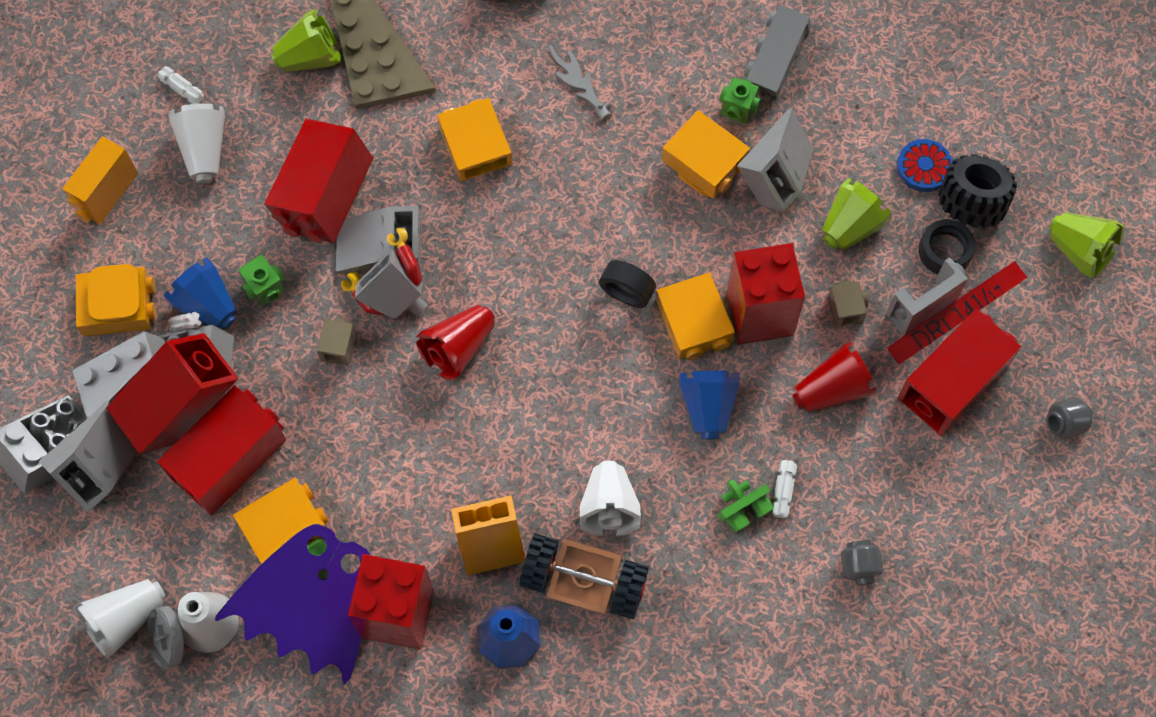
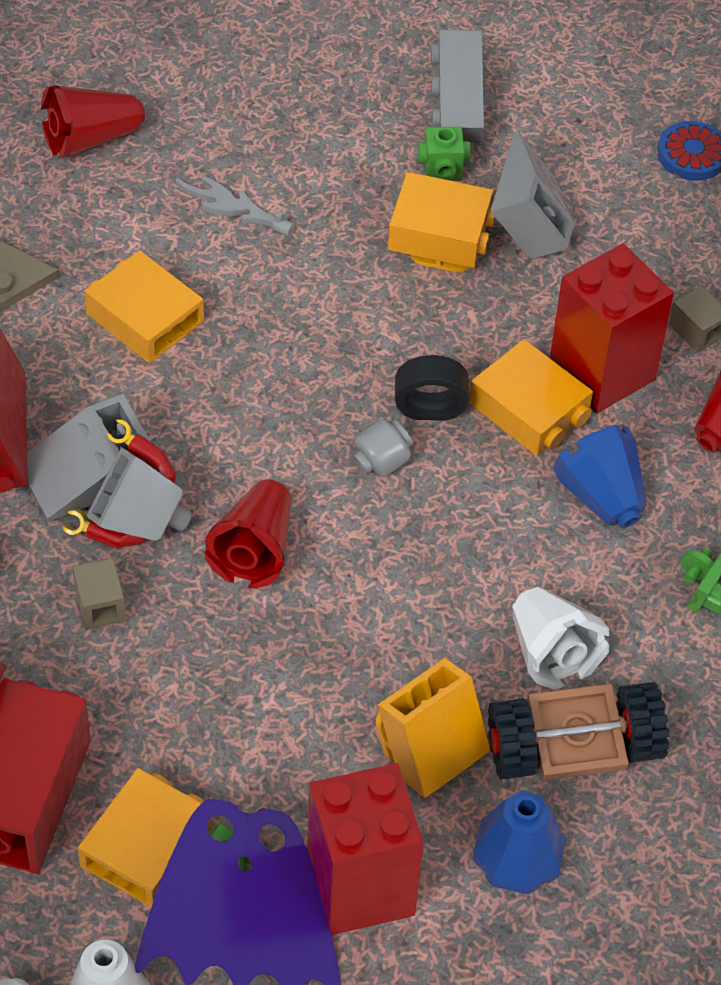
camera: 30 degrees left, 15 degrees down
(574, 312) = (382, 447): none -> light grey head
(854, 216) = (654, 217): lime cone -> none

